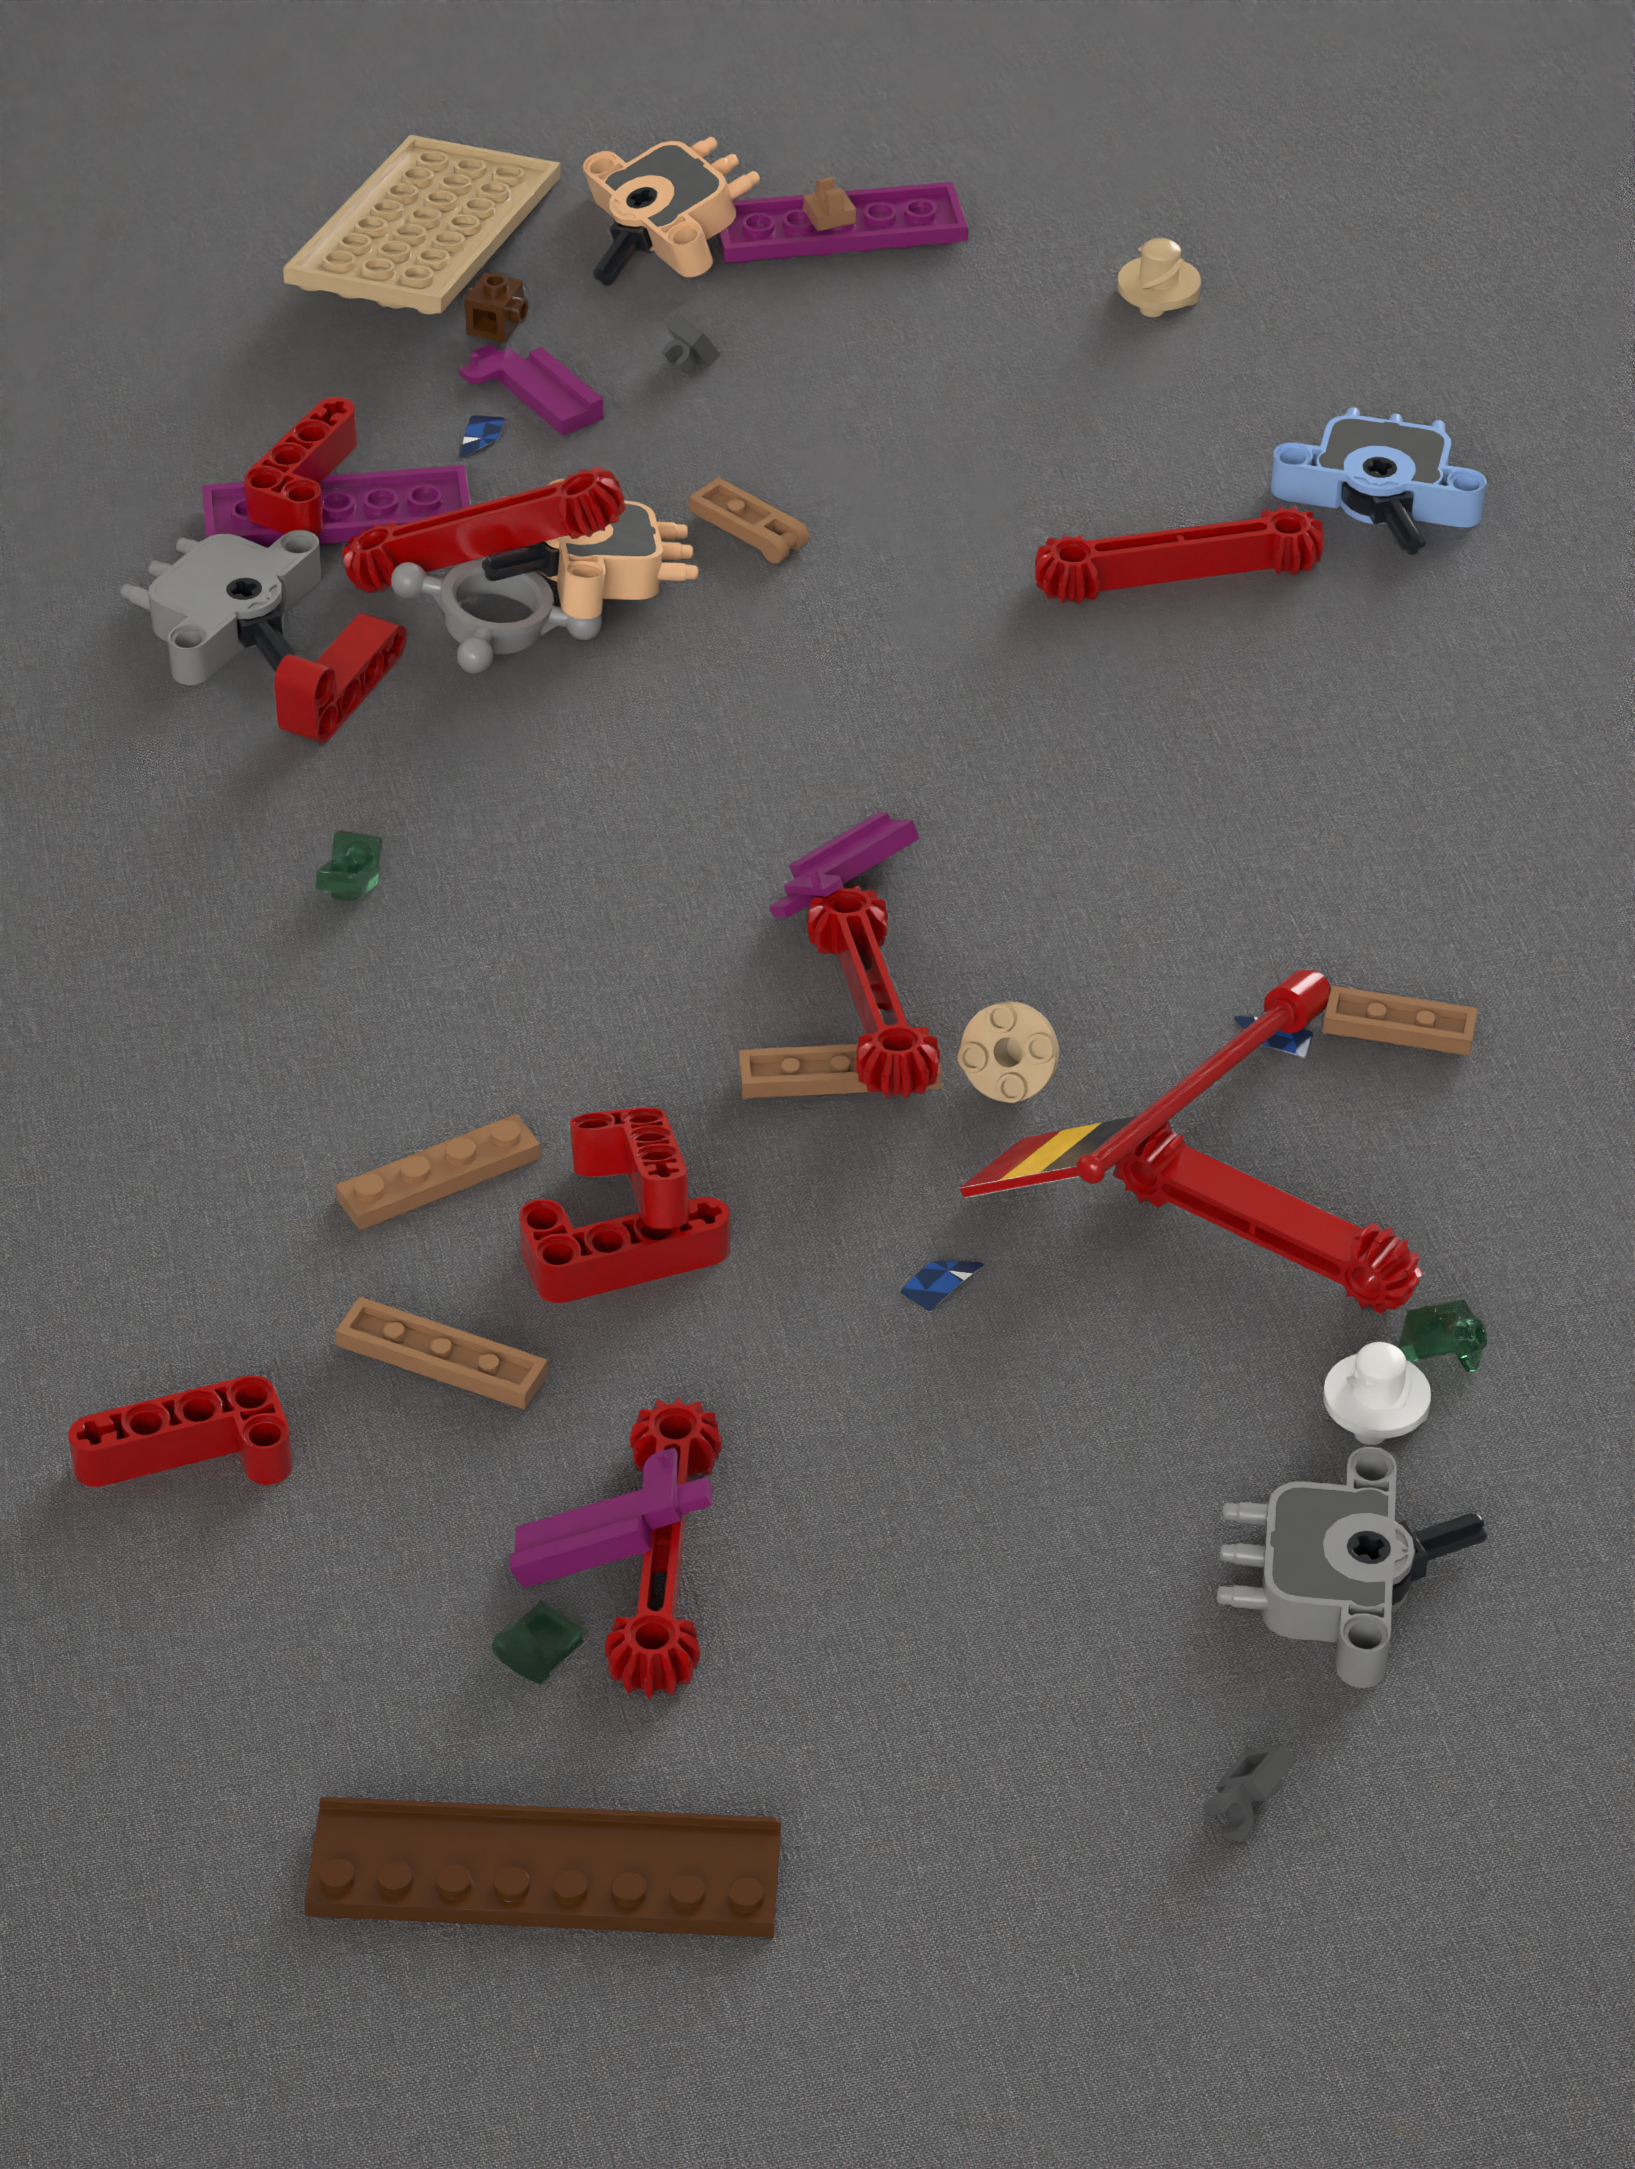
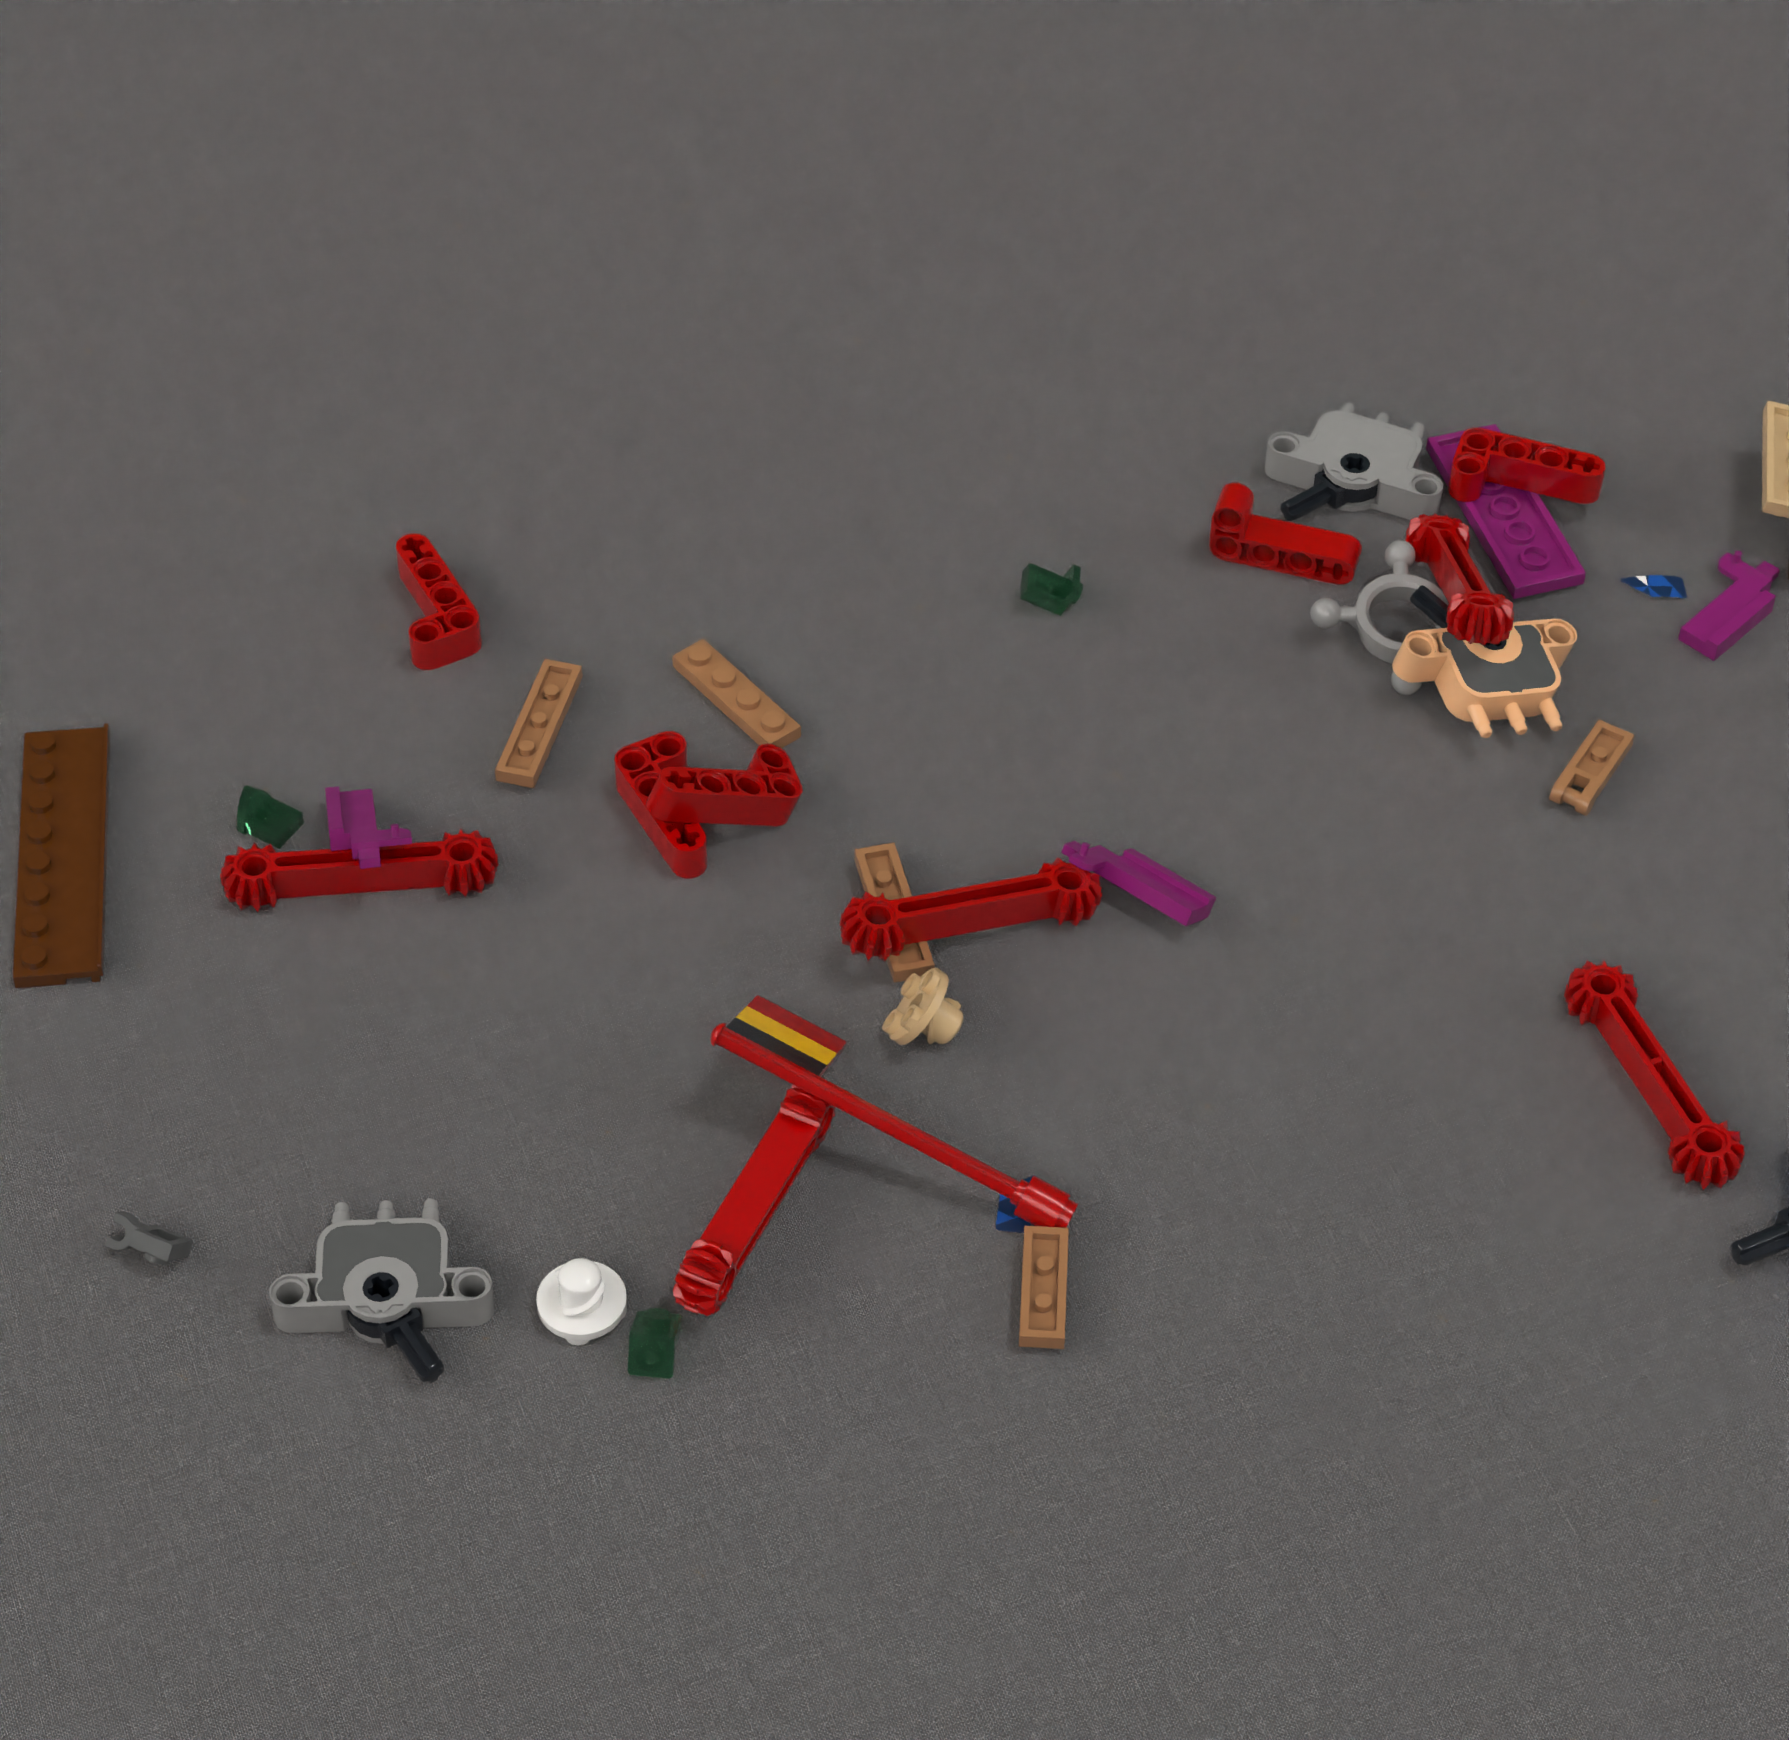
camera: 80 degrees right, 5 degrees up
(937, 1281) = (676, 1007): dark blue sticker -> none

